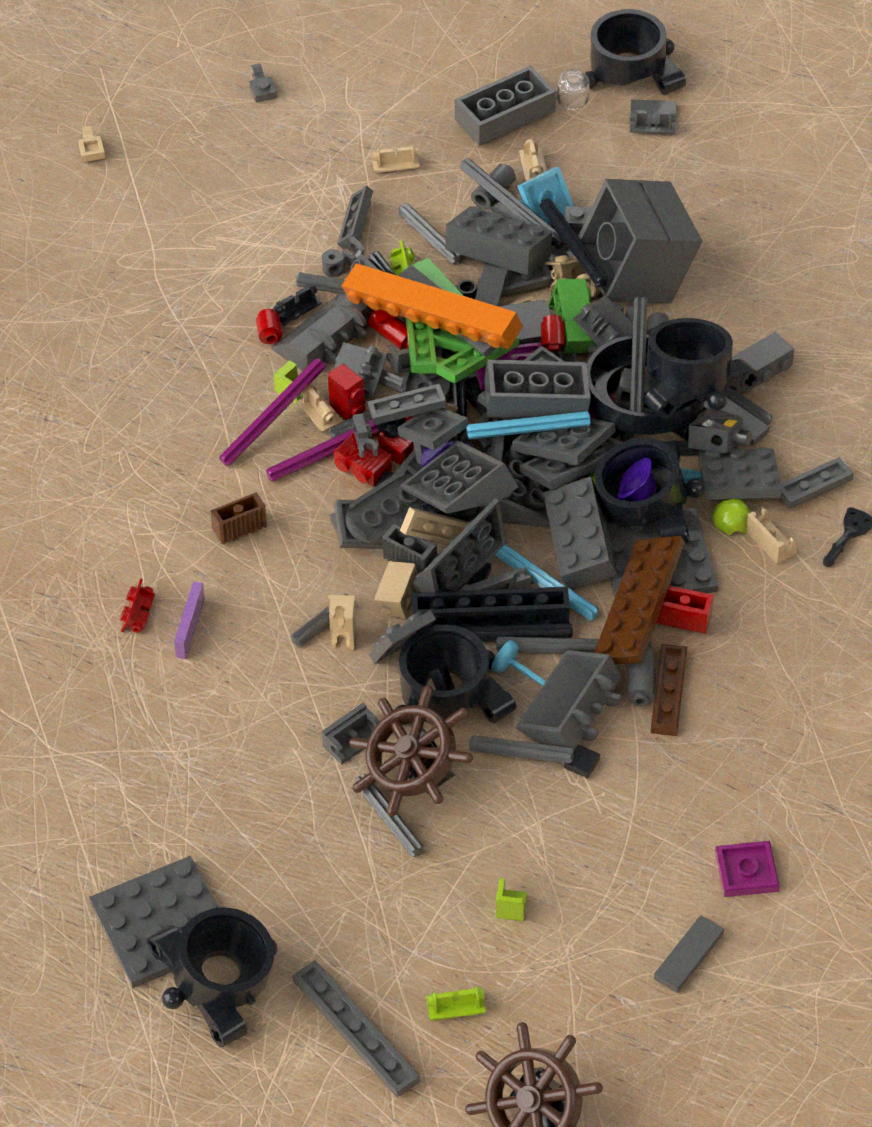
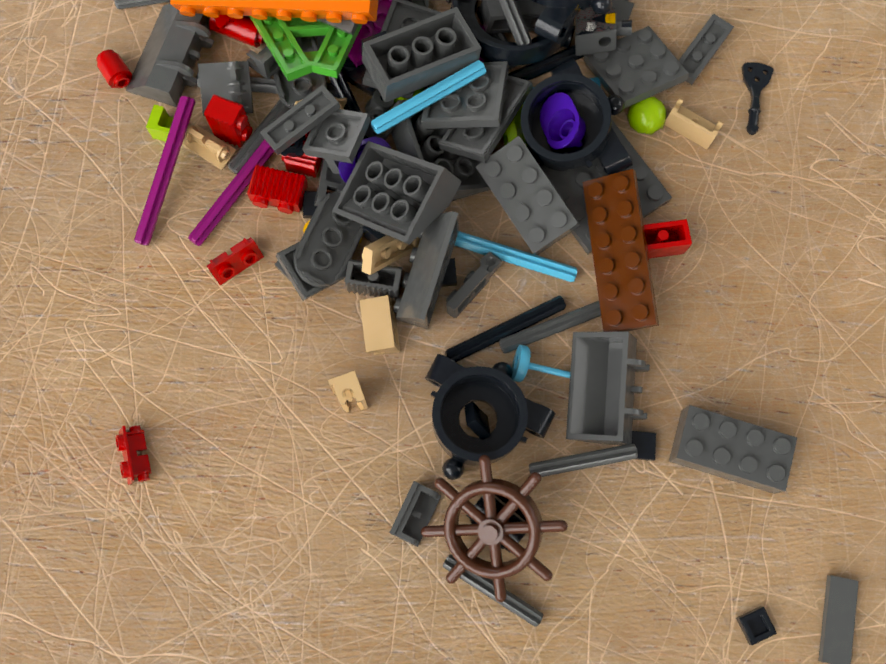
camera: 30 degrees left, 25 degrees up
(189, 620) = (193, 449): medium lavender tile -> none
(239, 518) = (188, 309): reddish brown brick -> none
(296, 306) = (130, 33): black hinge -> none
(297, 501) = (243, 256): none -> red hinge
(311, 628) = (322, 390): dark grey axle -> none
(362, 434) = (269, 166): dark grey plate -> none
(398, 635) = (420, 392): dark grey plate -> none
(495, 606) = (482, 315): black brick -> none
(510, 903) = (655, 642): lime panel -> none
(610, 929) = (756, 625): none -> black tile
(642, 680) = (658, 340): dark grey brick -> none
(661, 788) = (733, 449): none -> dark grey brick
(669, 690) = (680, 330): reddish brown tile -> none
(747, 869) = (843, 500): magenta tile -> none

